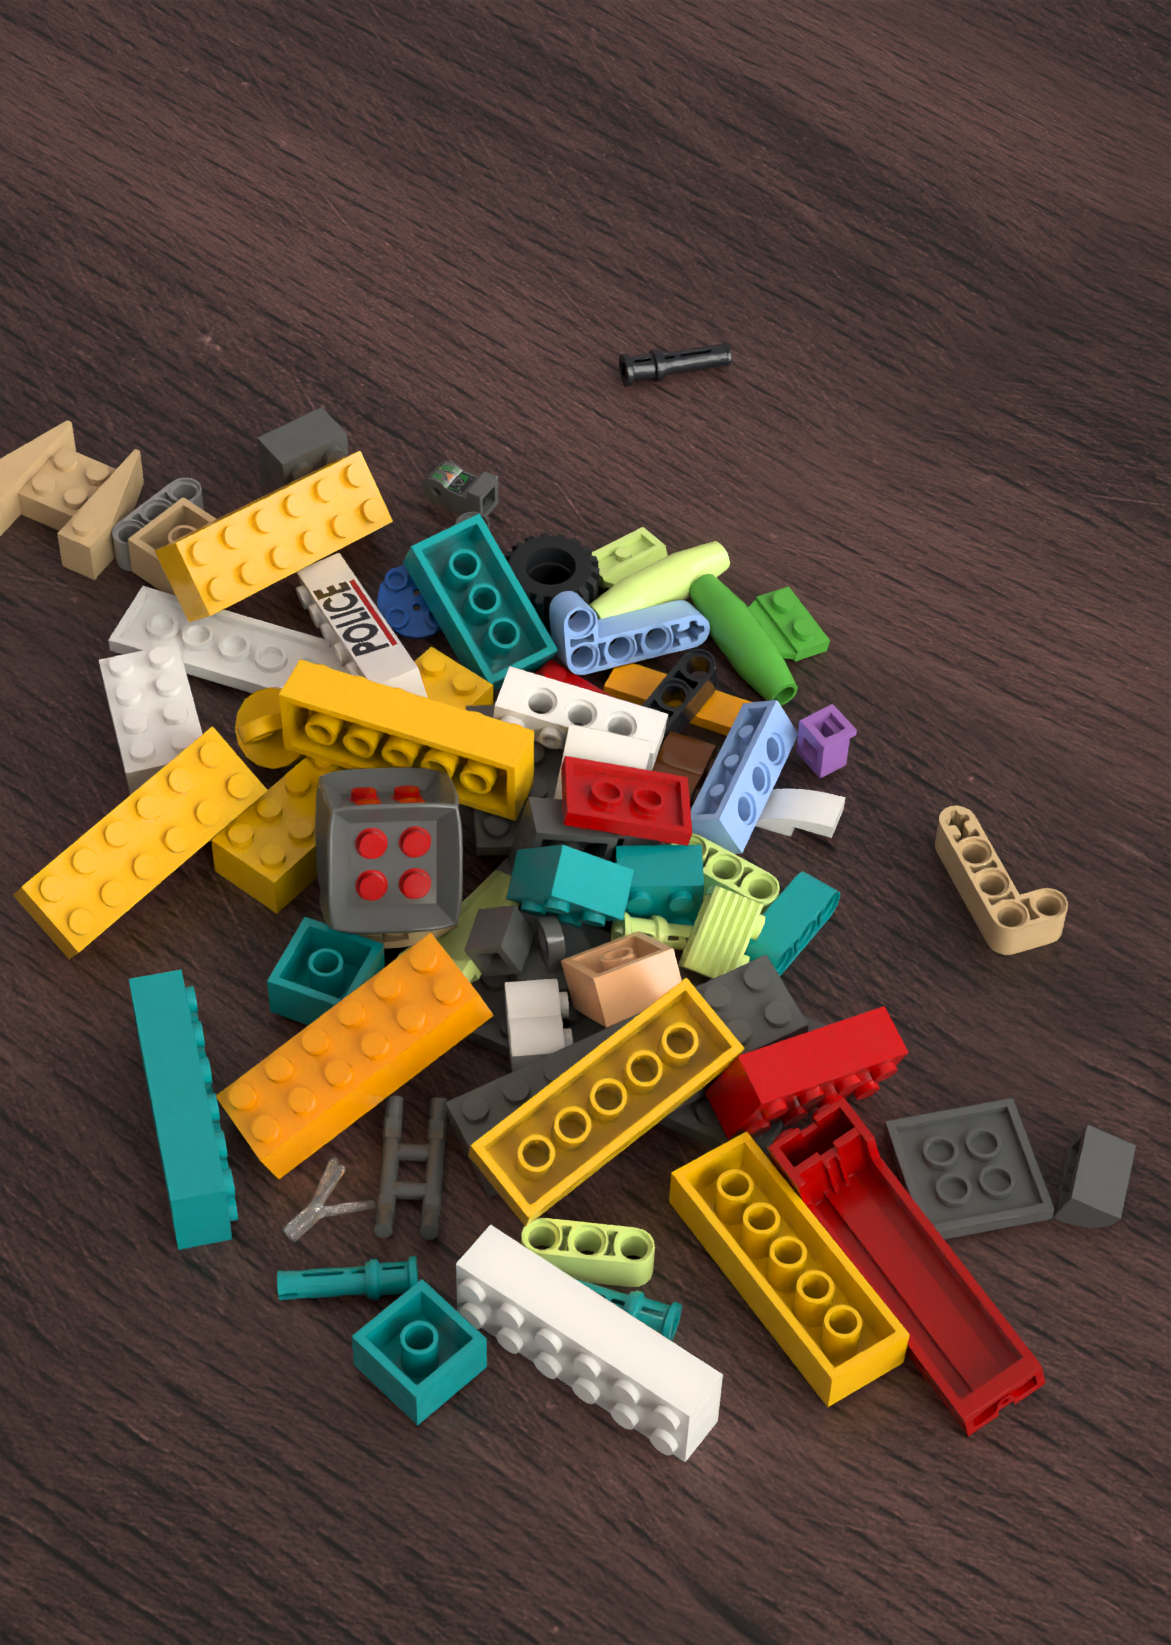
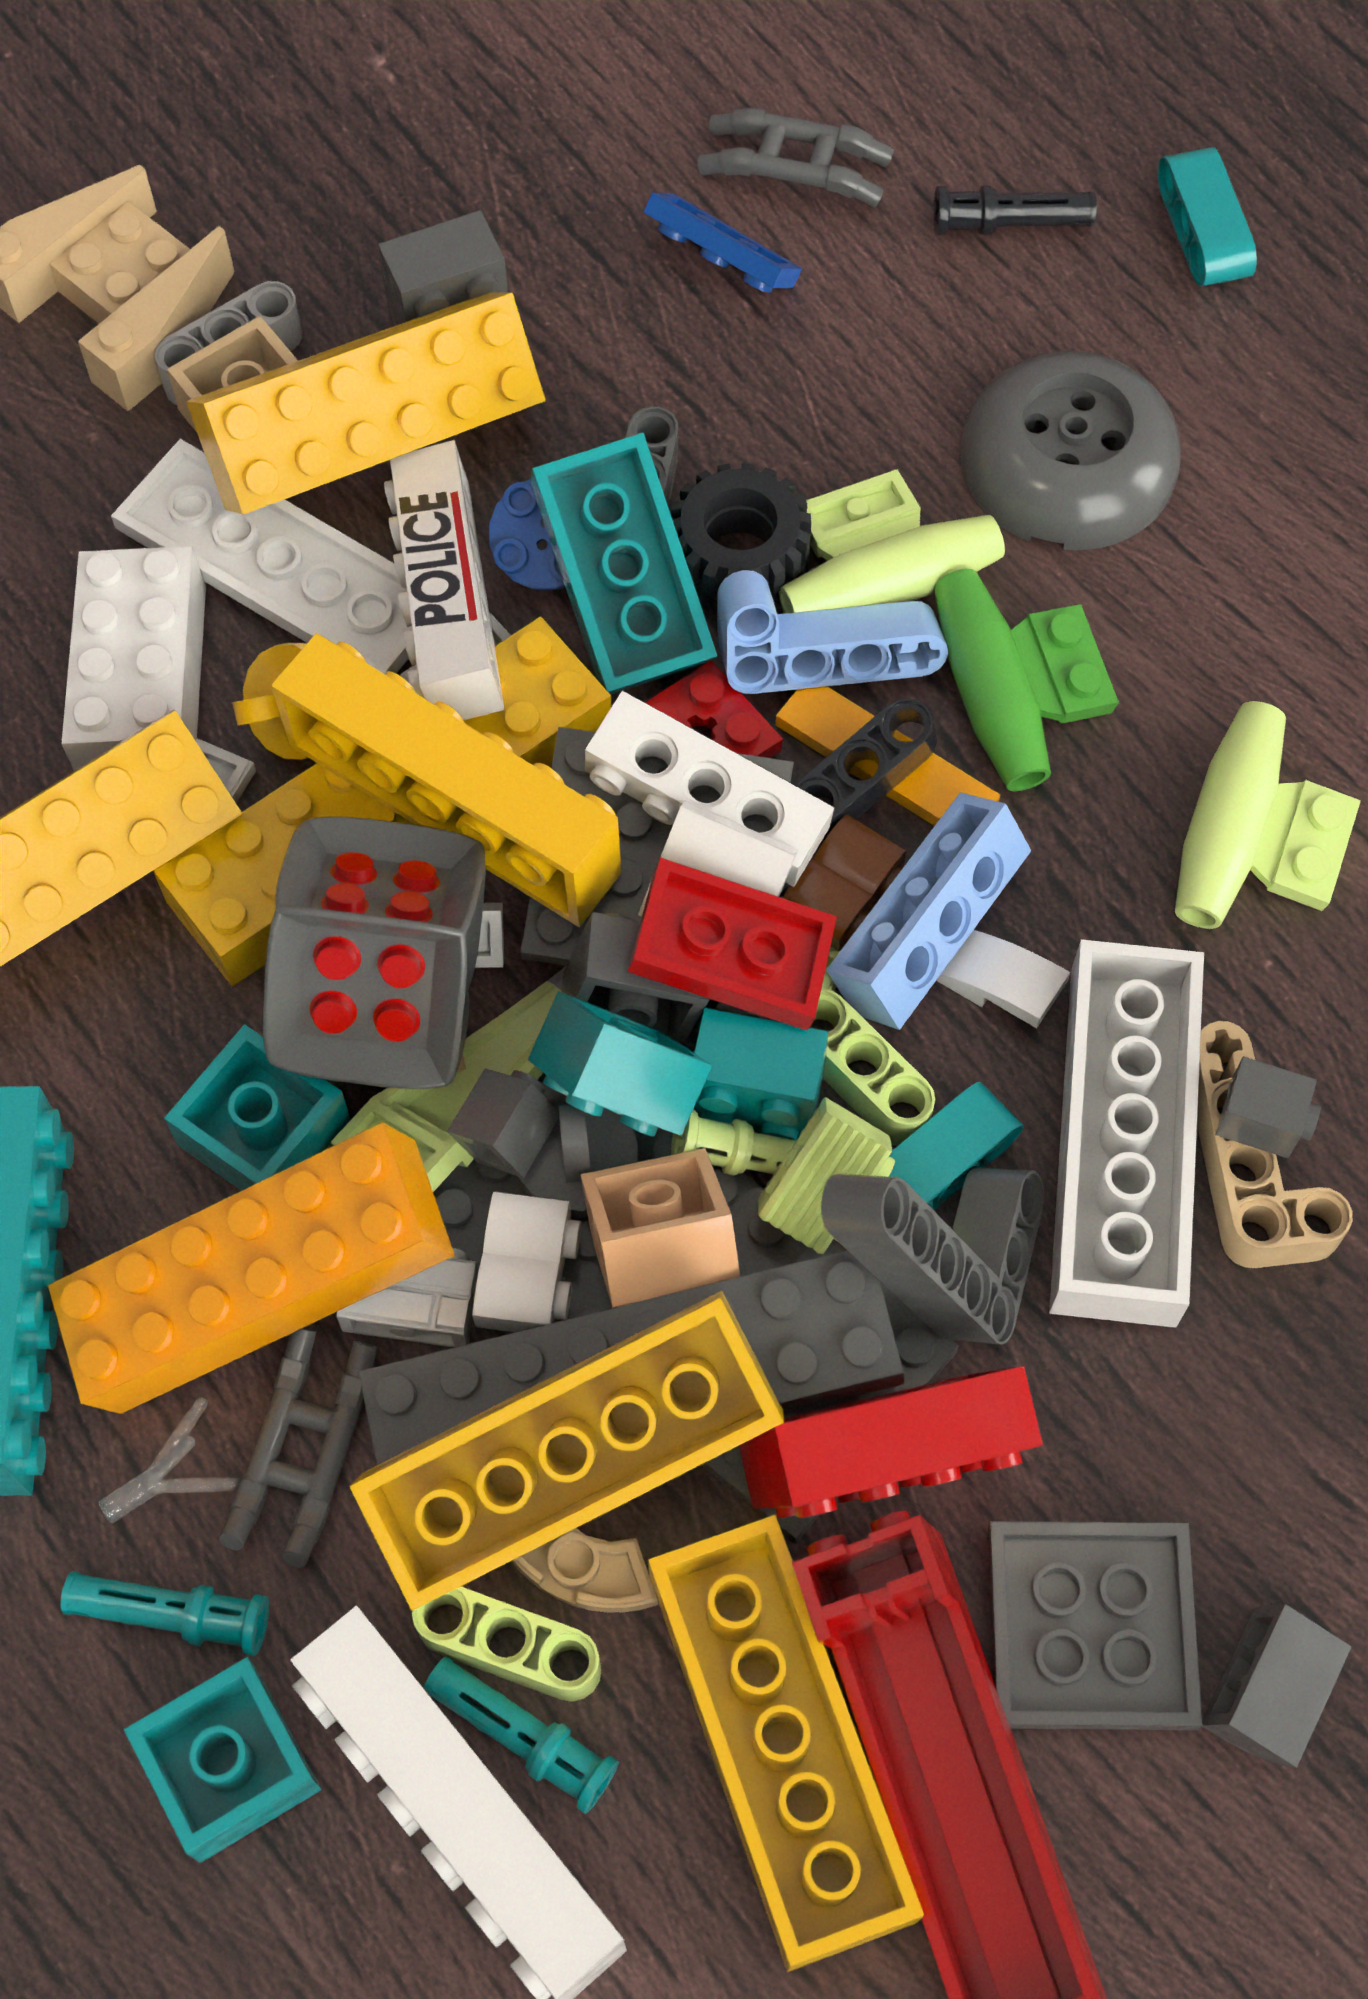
camera: 15 degrees right, 15 degrees up
(461, 490) = (660, 364): dark grey leg -> none
(464, 1067) = (423, 1308): none -> white brick
(482, 412) = (721, 242): none -> blue plate
(500, 359) = (816, 172): none -> dark grey piece
(620, 1204) = (590, 1572): none -> tan tile
(755, 498) = (1064, 479): none -> dark grey brick
(805, 347) = (1206, 216): none -> teal beam
(817, 960) = (956, 1279): none -> dark grey beam
(825, 740) = (1065, 871): medium lavender brick -> none
(910, 884) = (1128, 1135): none -> white brick
(934, 695) = (1248, 822): none -> yellowish green plate
(996, 844) = (1268, 1108): none -> dark grey brick

